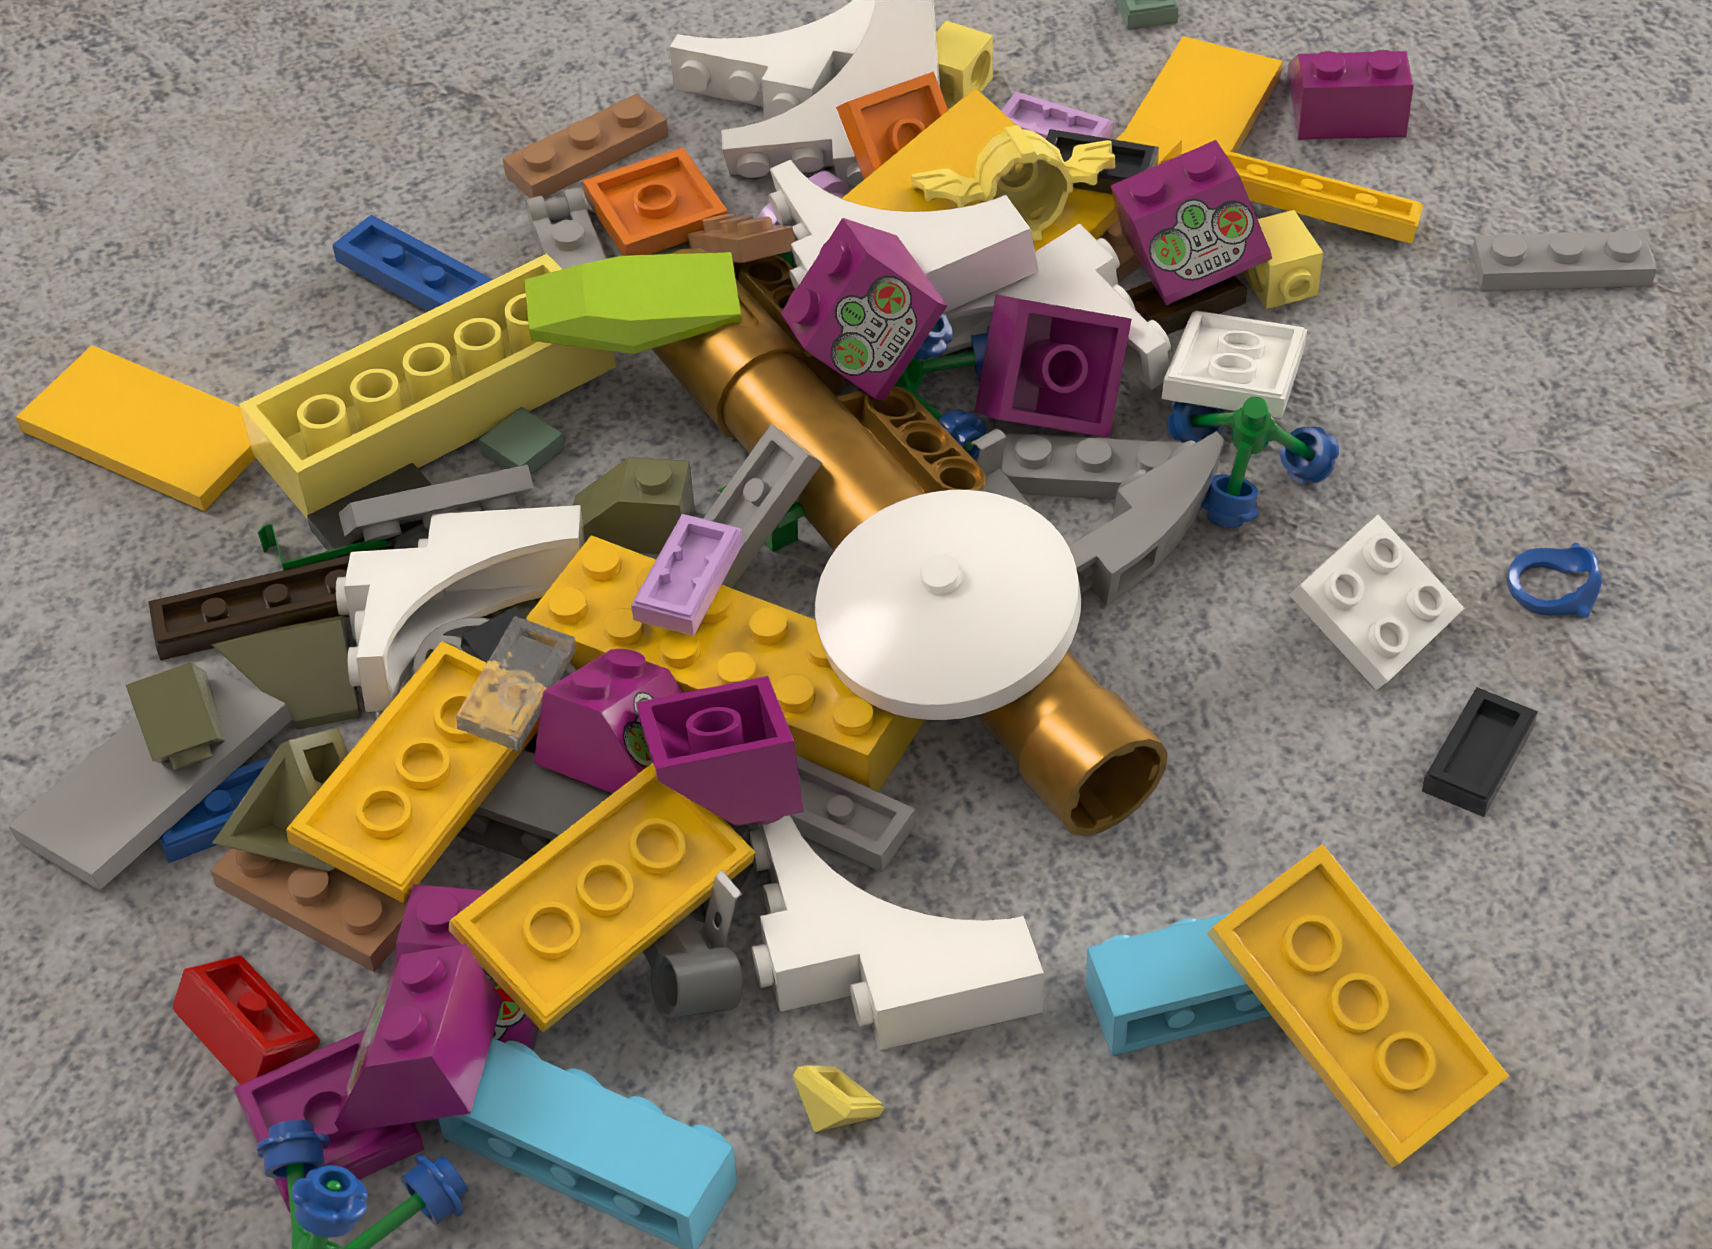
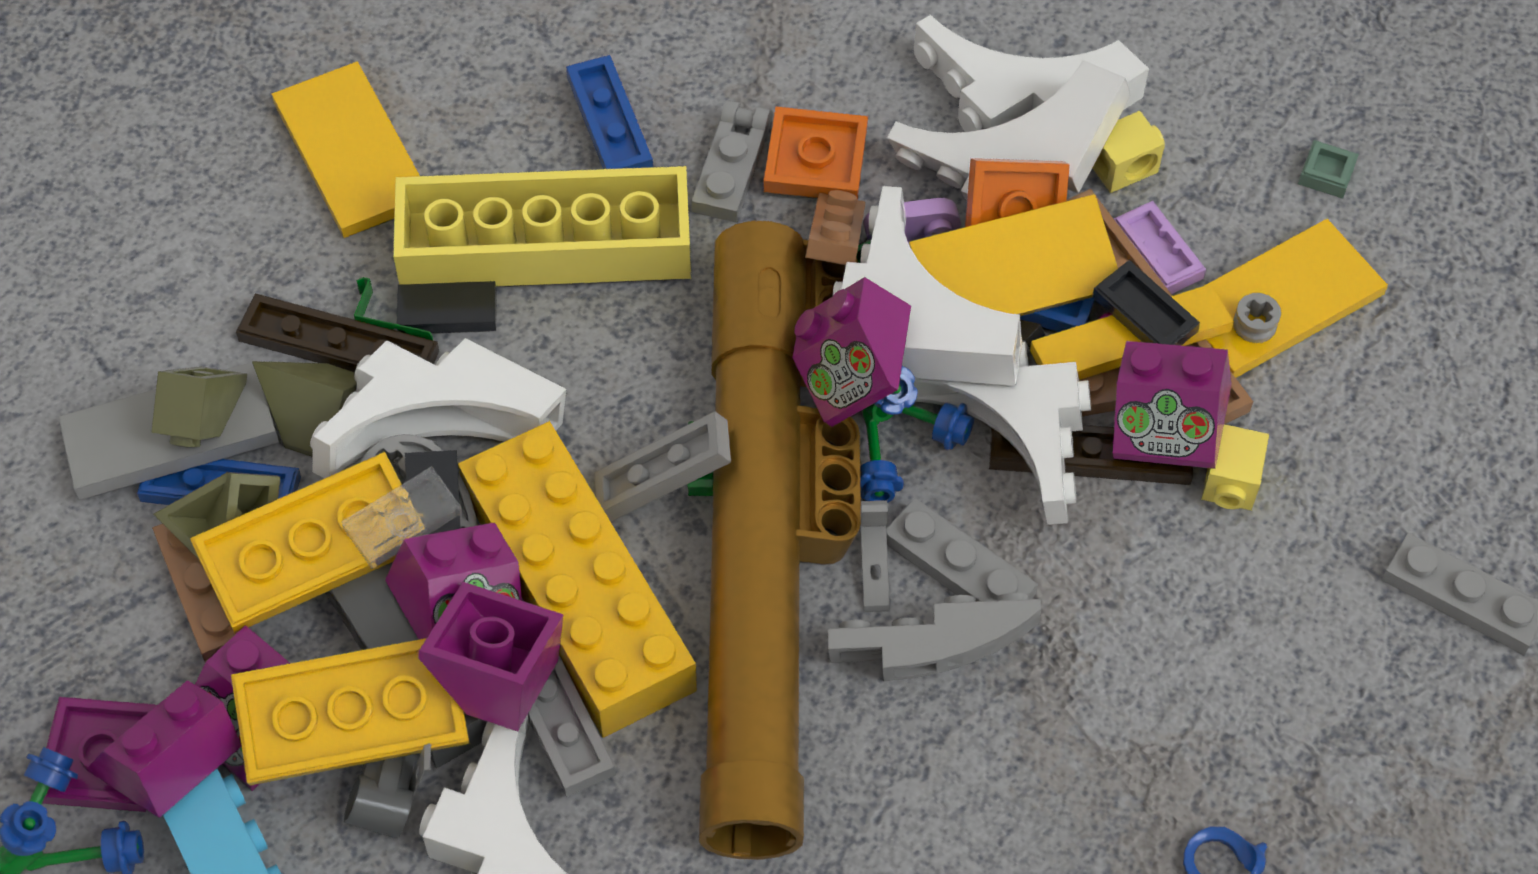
camera: 30 degrees right, 10 degrees up
(241, 1018) = (103, 648): red slope -> none
(383, 515) = (483, 329): light grey plate -> none
(522, 441) = (581, 306): sand green tile -> none
(585, 147) = (808, 73): medium nougat plate -> none
(633, 301) = (702, 249): lime piece -> none
(638, 503) = (614, 410): olive slope -> none
(687, 574) = (575, 498): lavender plate -> none
(948, 604) = (726, 632): white dish -> none
(1025, 171) = (1066, 295): light yellow helmet -> none
(1052, 366) = (973, 468): magenta slope -> none
(1195, 127) = (1257, 305): none -> light grey bush
(1232, 359) = (1121, 541): white tile -> none
(1232, 499) = (1033, 648): plant -> none
(1328, 198) = (1306, 424): yellow tile -> none
(1351, 94) = (1415, 345): magenta slope -> none
(1377, 602) = (1063, 804): white plate -> none

